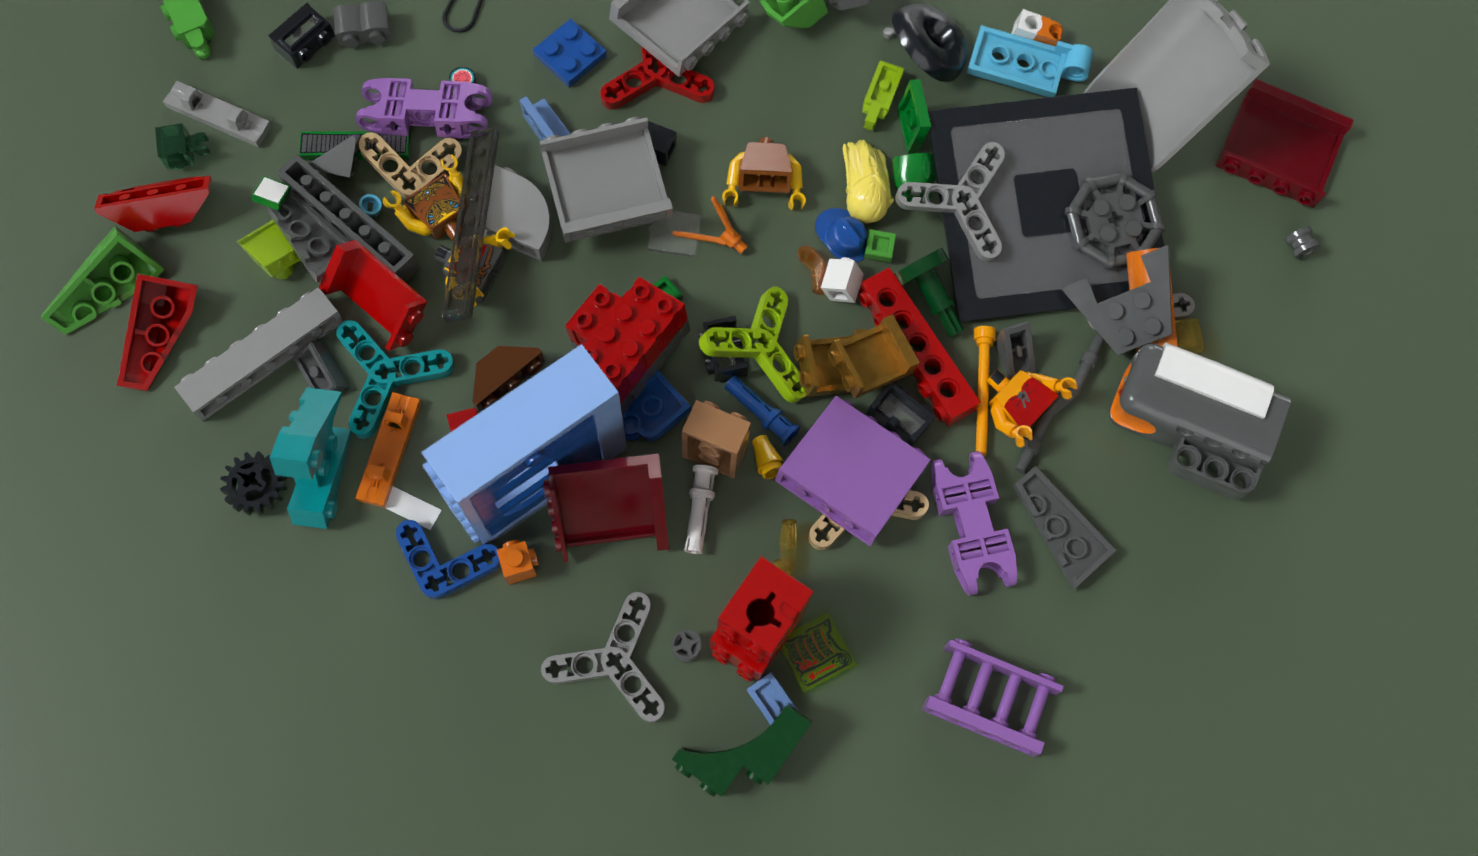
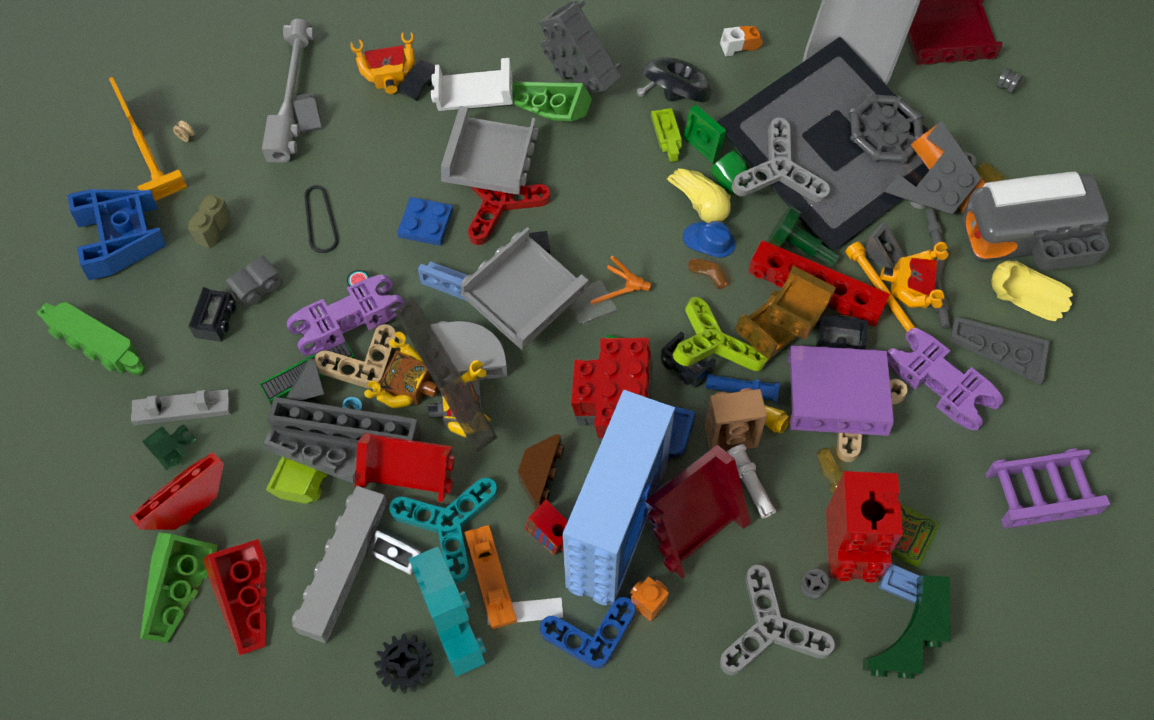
camera: 25 degrees left, 10 degrees down
(271, 193) = (272, 437): tile -> none
(765, 168) = (628, 222): torso -> none
(842, 280) = (735, 267): white brick -> none
(880, 245) = (742, 231): bright green plate -> none
(1045, 61) = (763, 57): medium azure hinge -> none
(1139, 485) = (1031, 290): none -> light yellow hair

